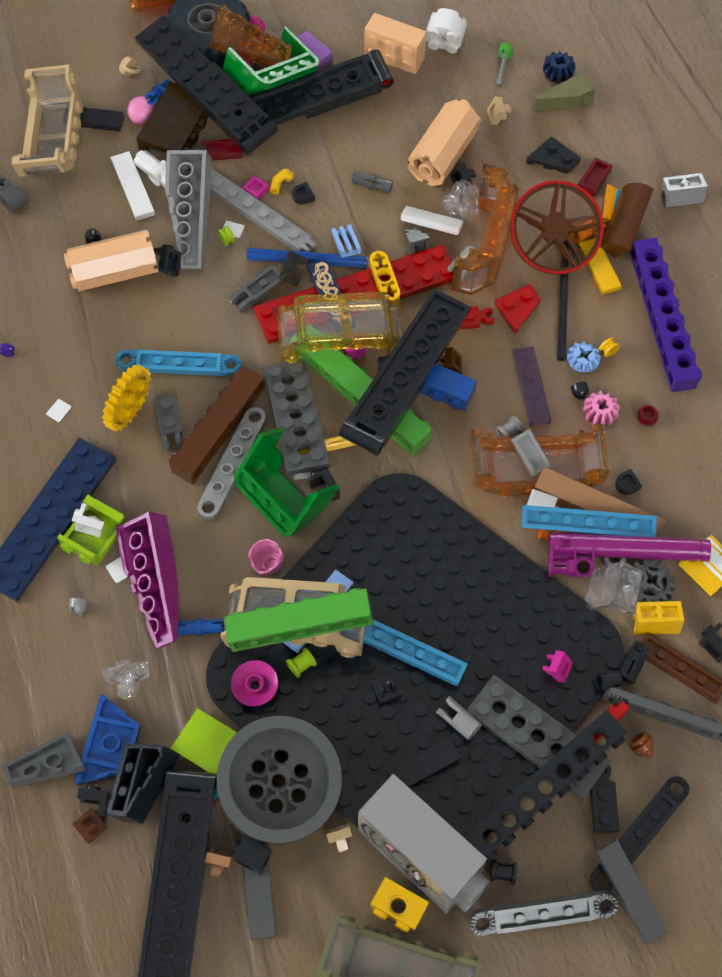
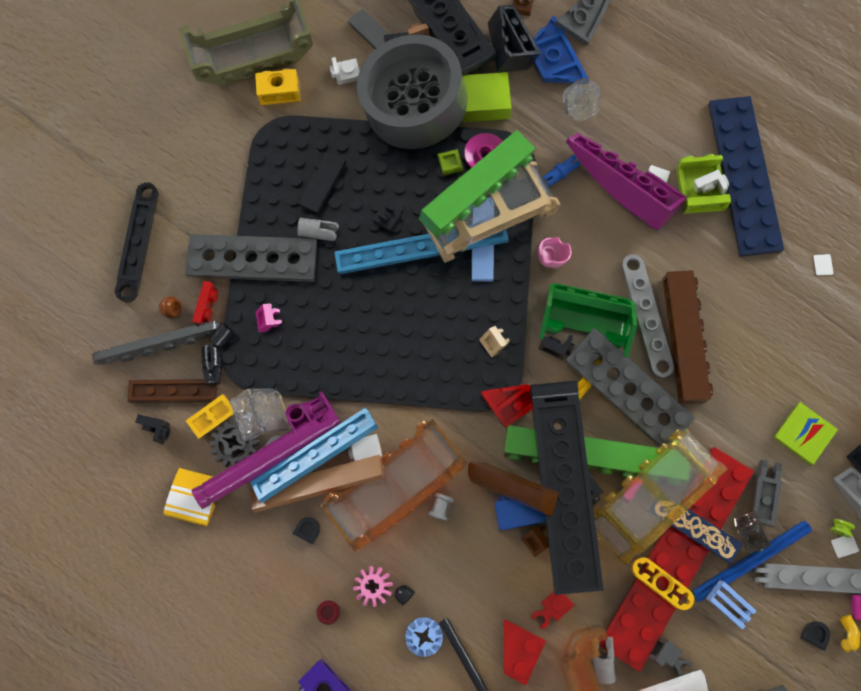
camera: 150 degrees right, 10 degrees up
(77, 605) = (662, 127): light grey hinge -> none
(94, 795) = (533, 17): black bracket -> none
(126, 397) = (775, 292): yellow gear -> none
(168, 419) = (728, 315): dark grey hinge -> none
(180, 362) = (767, 370): dark azure plate -> none
(192, 307) = (805, 433): none -> lime tile
(291, 702) = (450, 162): none -> lime tile
(318, 877) = (344, 71): none -> white bracket
(338, 836) = (349, 101): tan tile -> none
(375, 516) = (493, 341): none -> tan tile
(397, 466) = (508, 402): none -> red wing
(423, 846) = (276, 103): light grey brick -> none
(445, 395) = (513, 487): none -> reddish brown brick
(503, 871) = (220, 153): black bush -> none
(530, 452) = (404, 488): light grey tile -> none
(531, 386) = (452, 570): clear purple plate -> none
(543, 913) = (171, 149): plate -> none
(603, 725) = (201, 282): black brick -> none
(604, 804) = (173, 246): black plate -> none
(609, 347) = (405, 663): yellow bush -> none
(631, 892) = (121, 195): dark grey tile -> none

